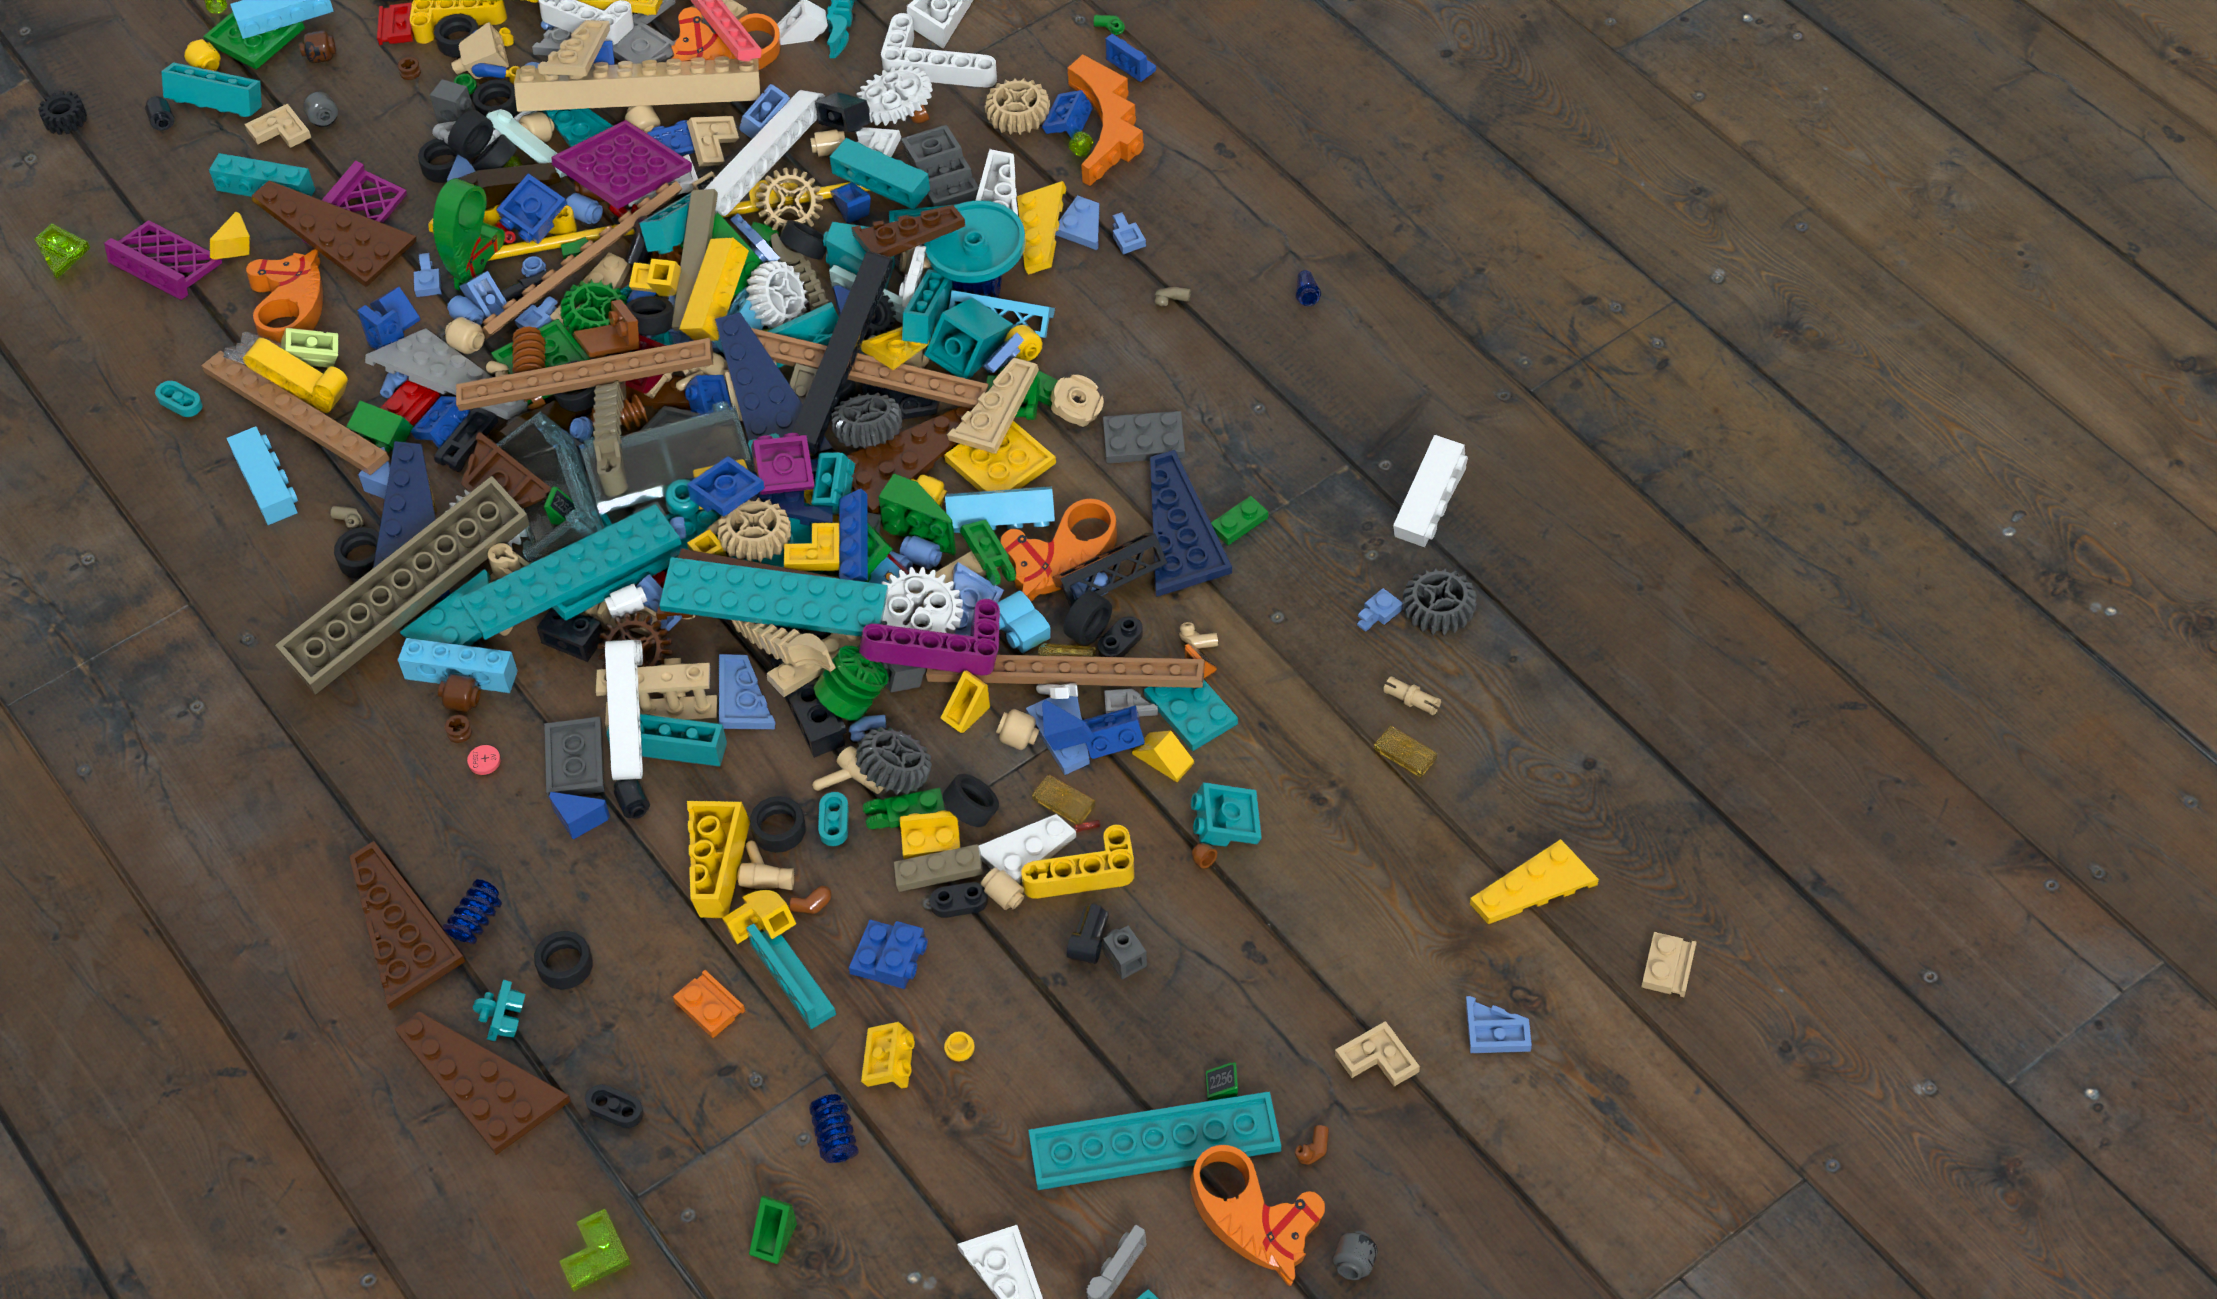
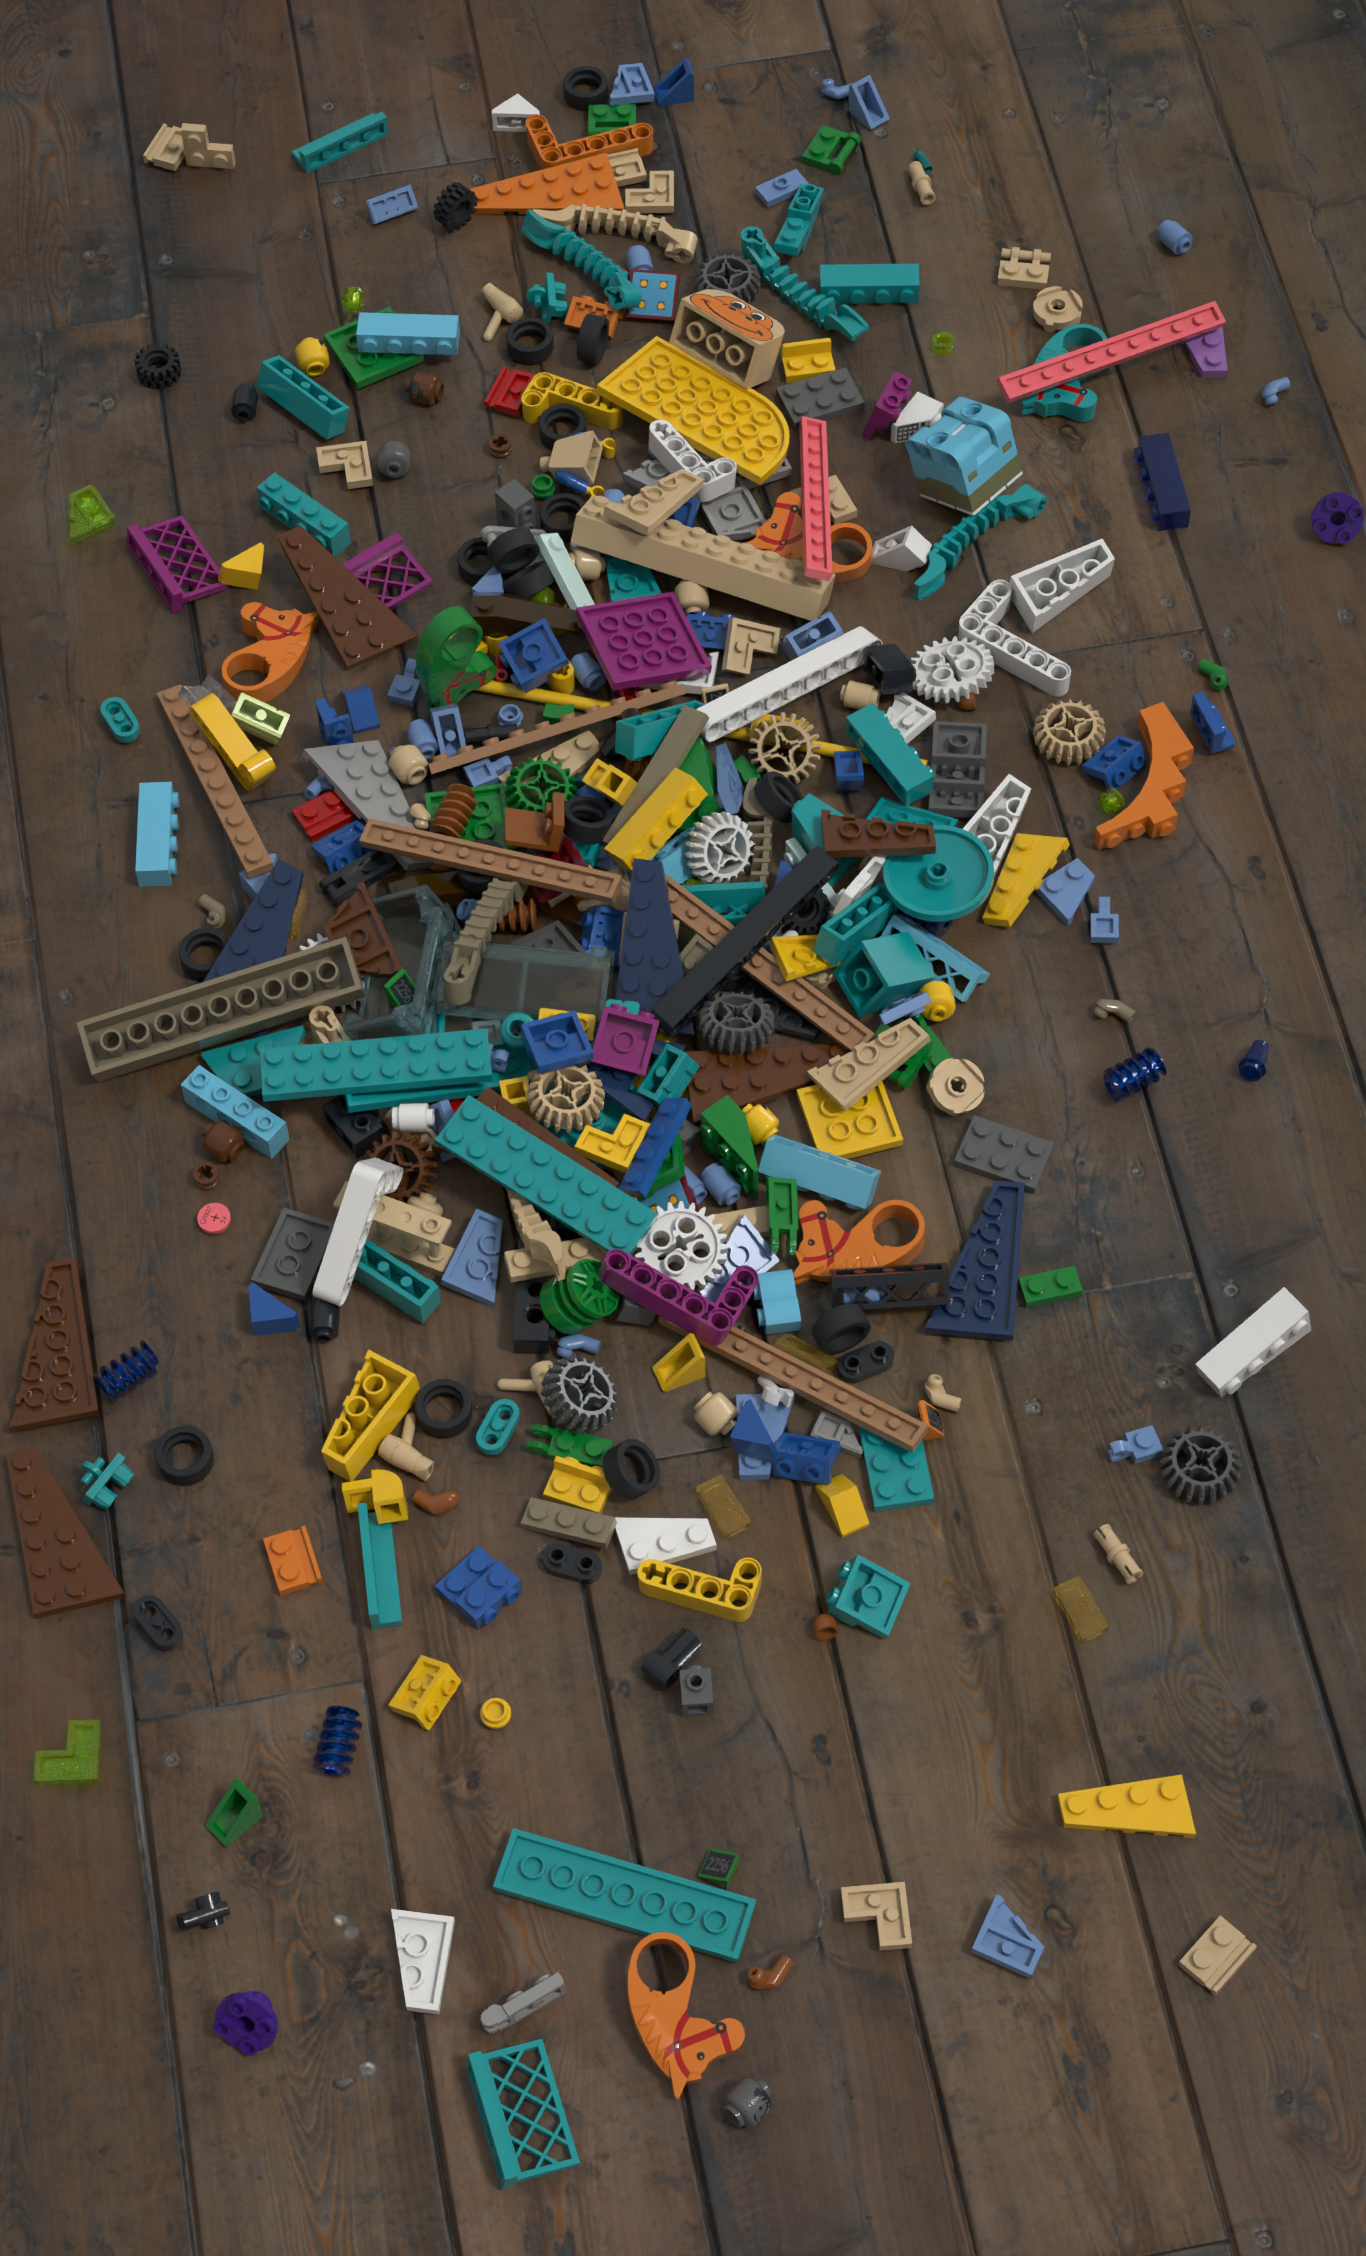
camera: 25 degrees right, 5 degrees up
(379, 426) = (283, 829): green brick -> none
(1003, 888) = (616, 1573): tan brick -> none
(1085, 826) = (732, 1543): clear red piece -> none
(1217, 334) = (1133, 1072): none -> clear blue piece

